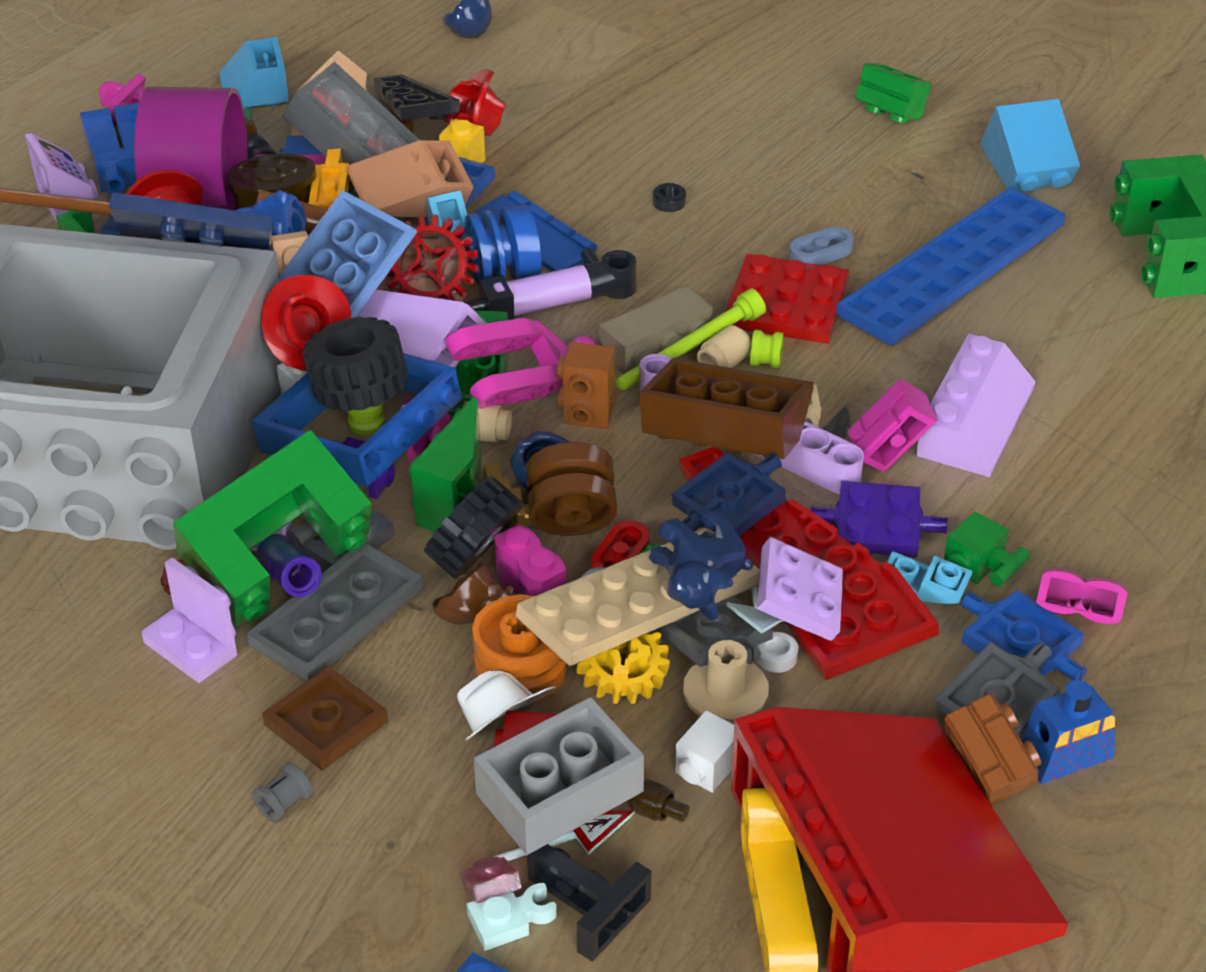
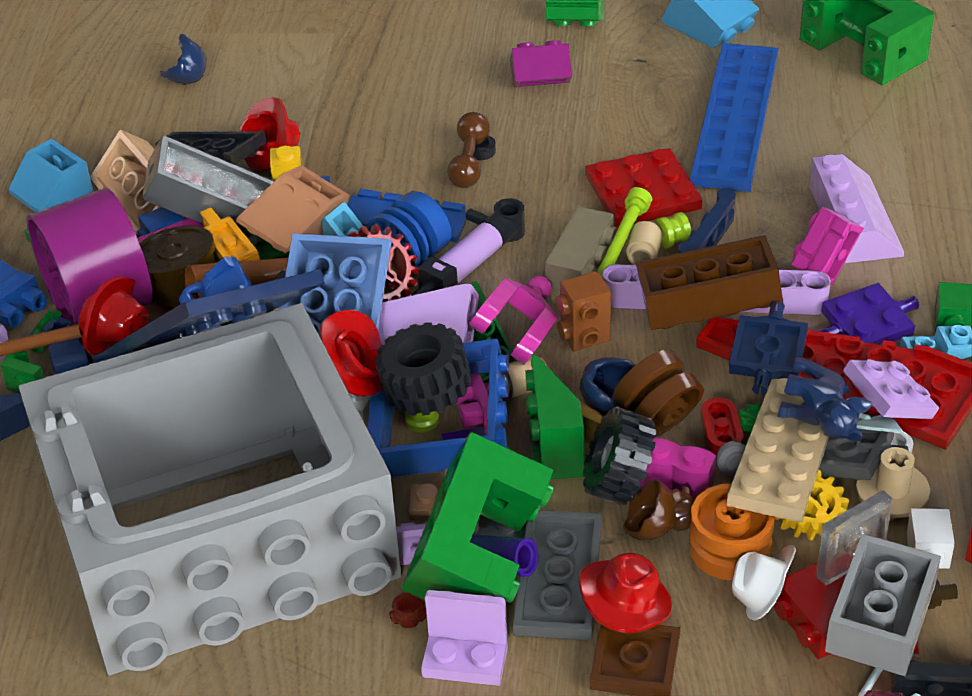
camera: 30 degrees left, 0 degrees up
(363, 654) = (625, 593): none -> red hat
(608, 684) = (842, 535): none -> clear plate
(626, 211) = (464, 168): none -> reddish brown piece
(798, 138) = (540, 64): none -> magenta slope
(813, 360) = (713, 224): none -> dark blue plate
(822, 246) = (633, 138): sand blue plate -> none

